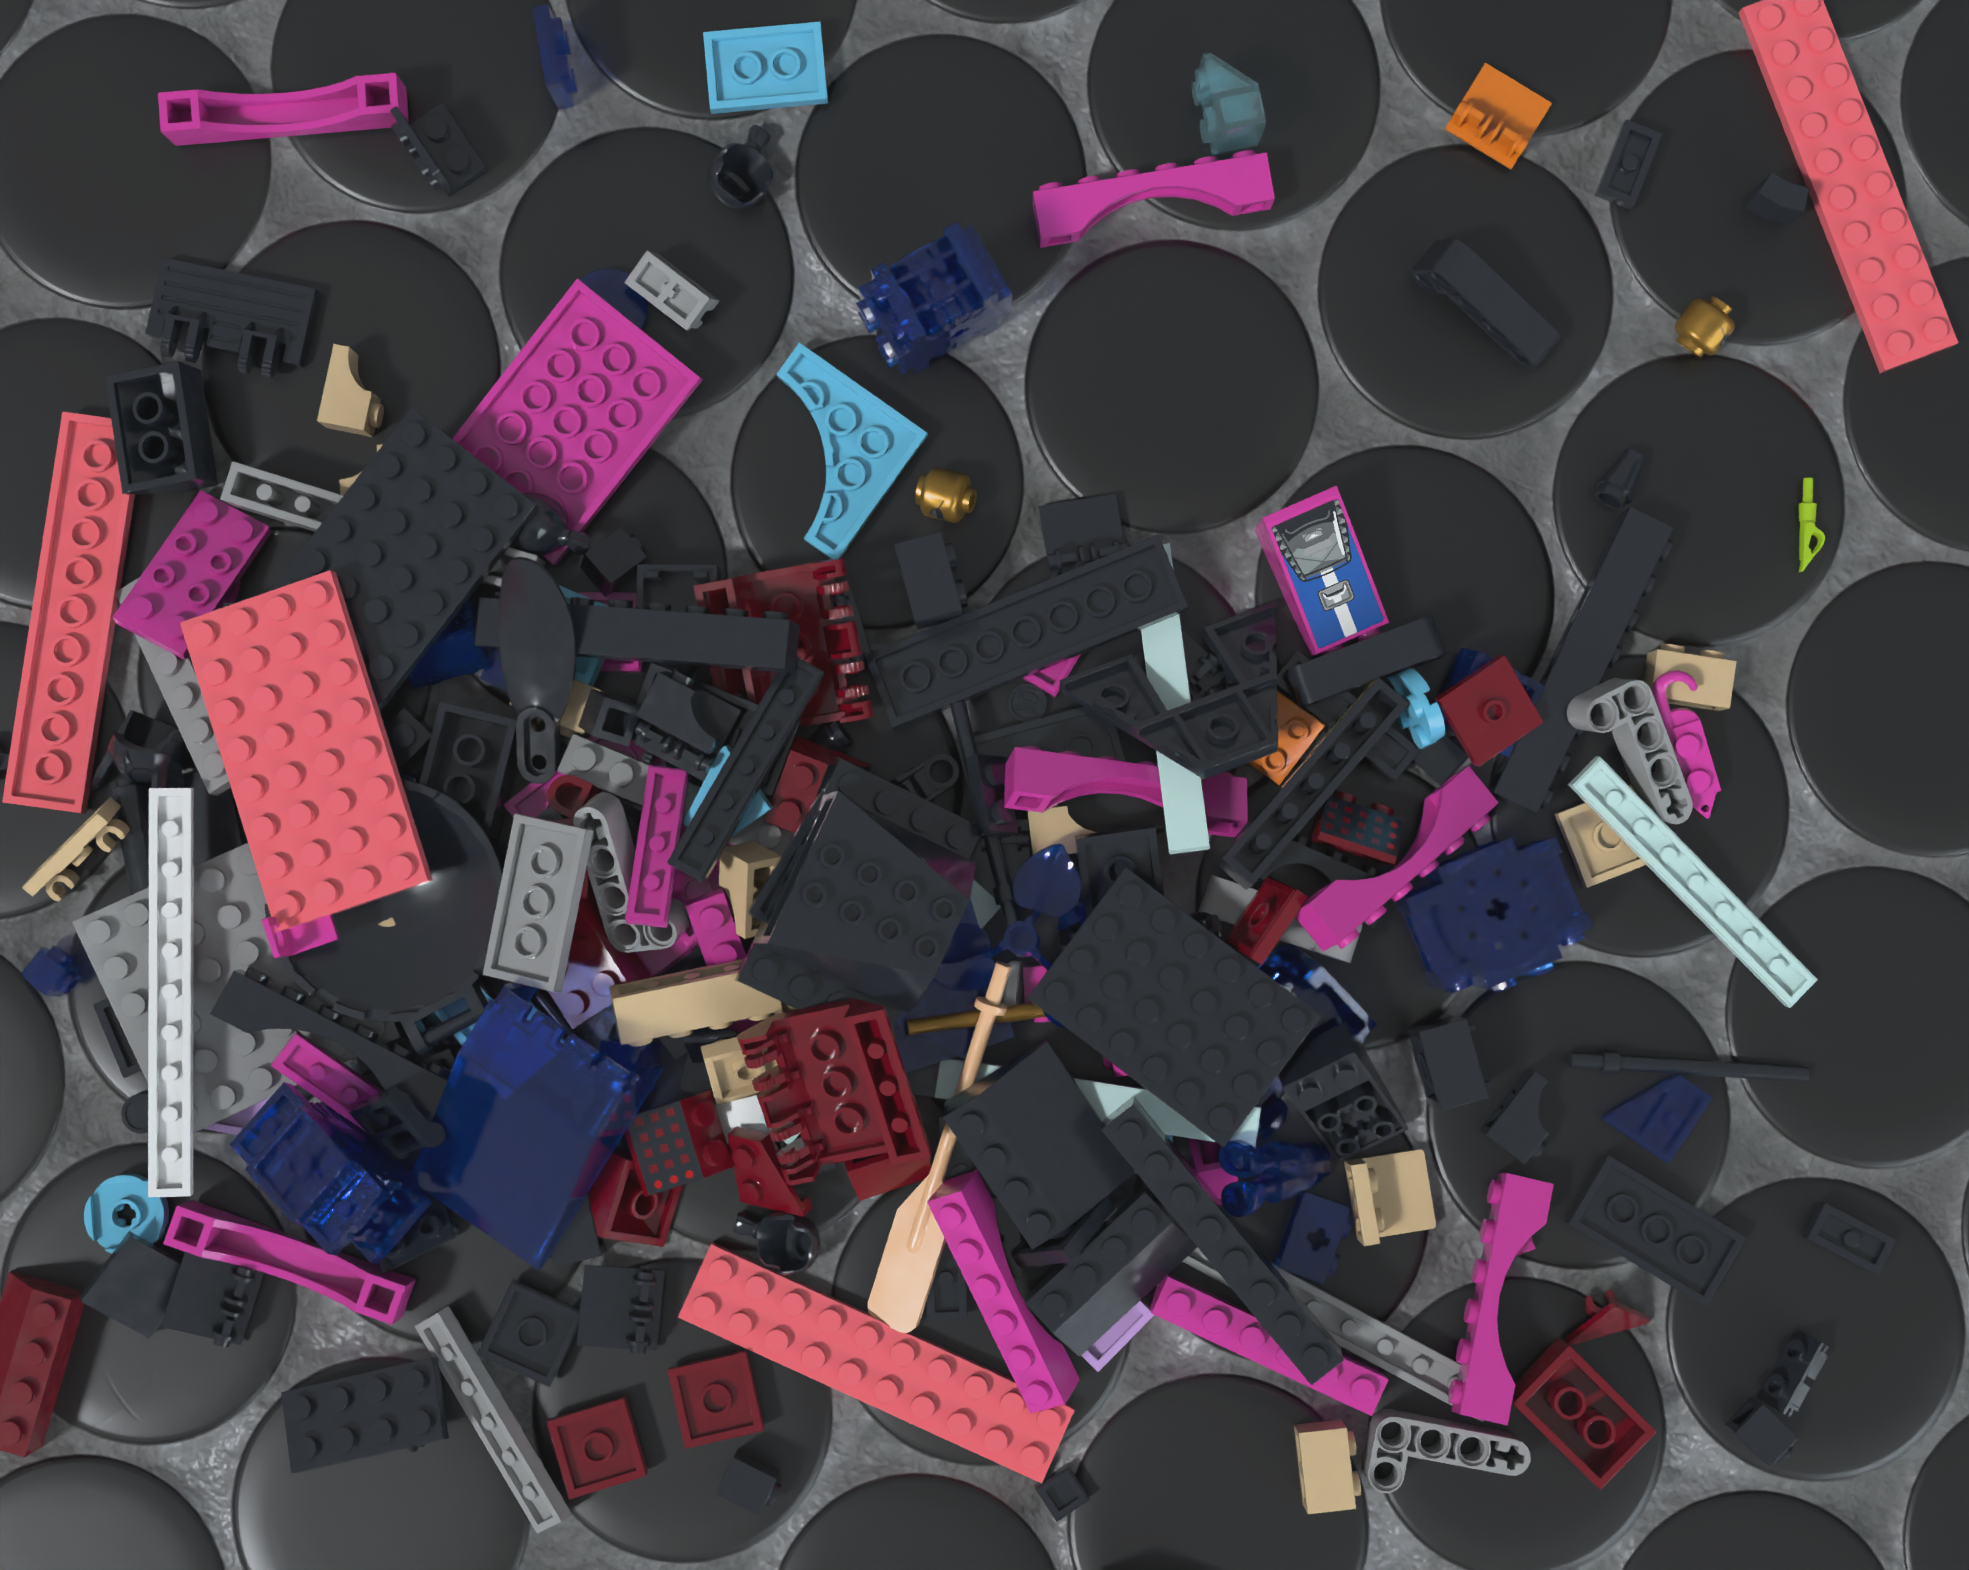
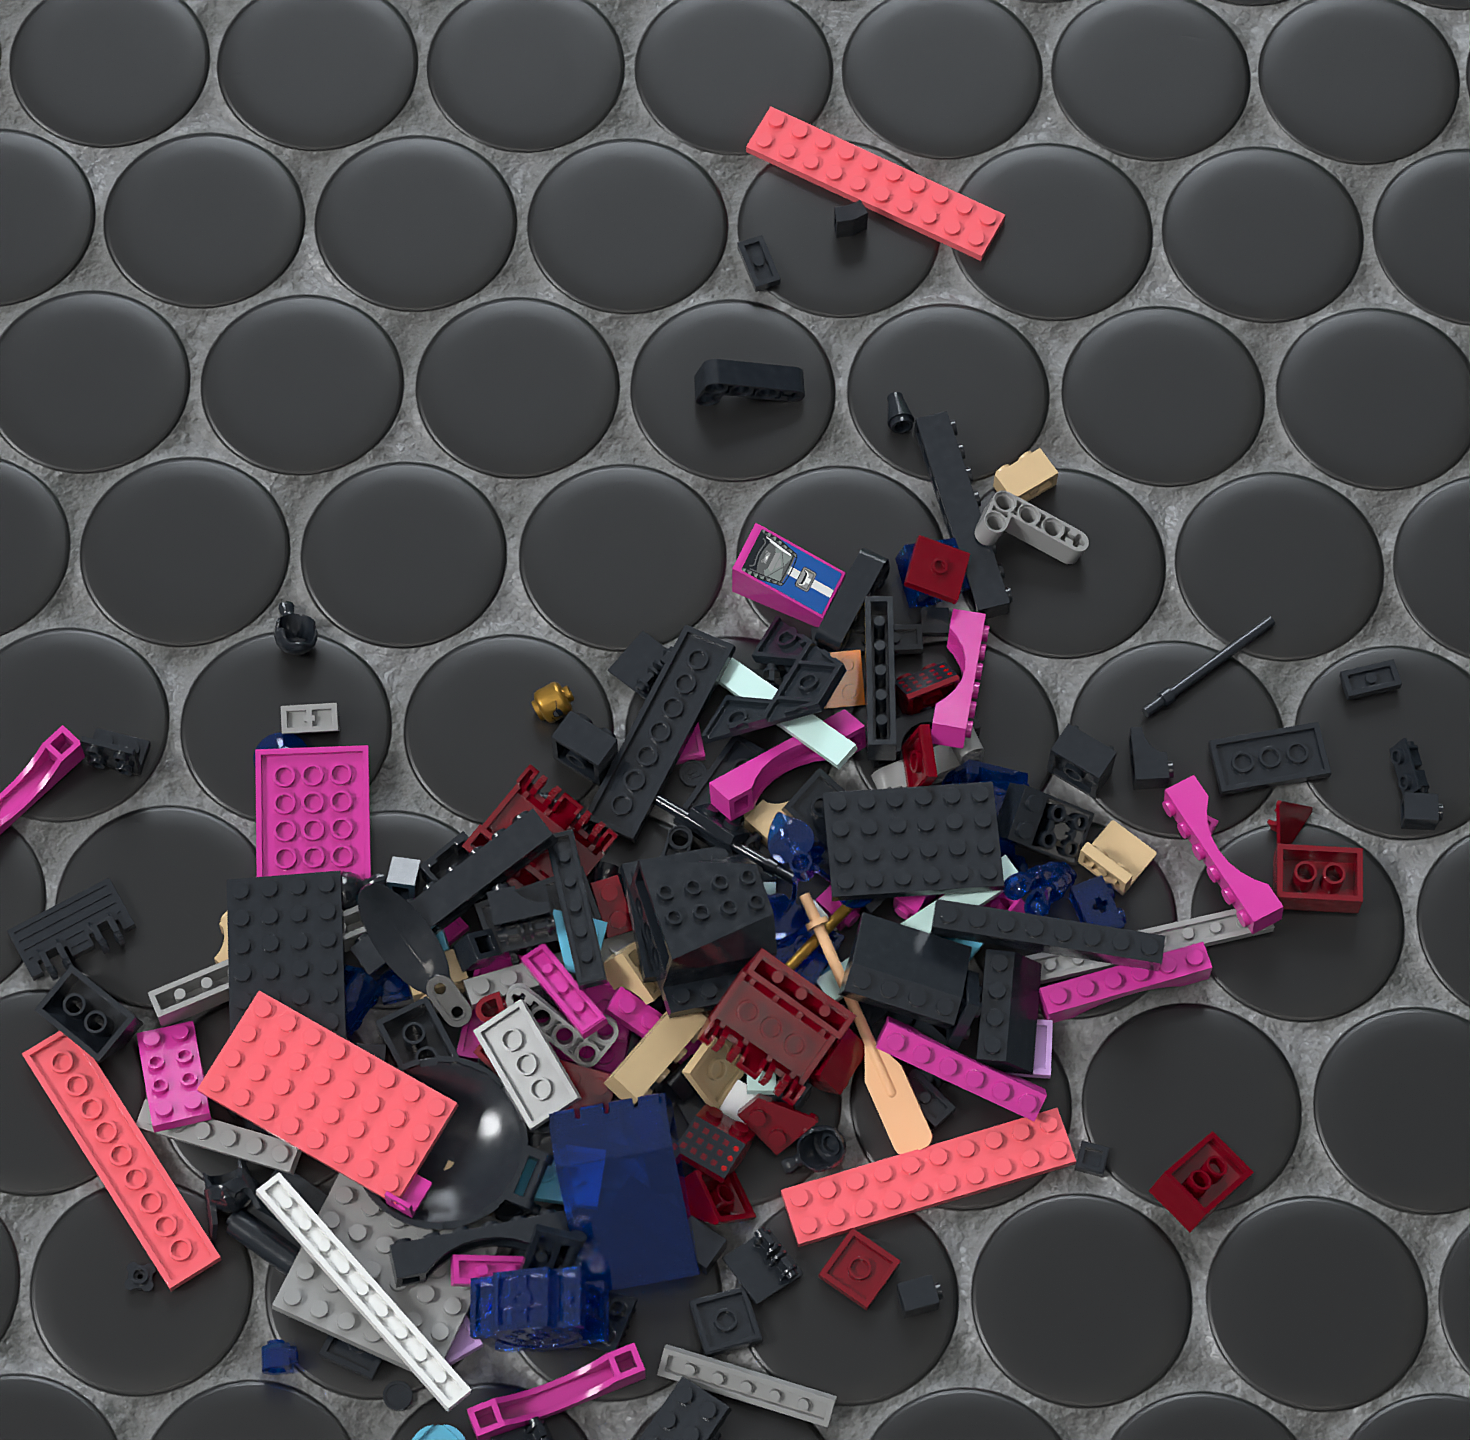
camera: 40 degrees left, 20 degrees down
(76, 850) = (236, 1274): tan plate -> none
(344, 400) = (180, 917): tan arch -> none
(553, 47) = (144, 654): clear blue plate -> none
(597, 1447) = (818, 1351): dark red plate -> none
(765, 67) = (259, 571): medium azure plate -> none
(862, 444) = (483, 713): medium azure plate -> none
(934, 299) = (462, 601): clear blue piece -> none
(1229, 105) = (526, 394): clear light blue slope -> none
(1231, 185) = (562, 433): dark pink arch -> none
(1326, 1466) = (1216, 1020): tan brick -> none
(1420, 717) = (907, 602): medium azure plate -> none
(1445, 1450) = (1270, 959): light grey beam -> none
(1498, 116) = (670, 293): orange hinge -> none
(1522, 934) = (1035, 669): clear blue piece -> none
(1595, 846) = (1058, 588): tan plate -> none
(1661, 1116) = (1218, 701): clear blue wing -> none
(1688, 743) = (1056, 506): dark pink plate -> none
(1692, 881) = (1121, 572): light aqua tile -> none
(1704, 326) = (870, 307): pearl gold head -> none
(1807, 520) = (1015, 360): lime hand -> none

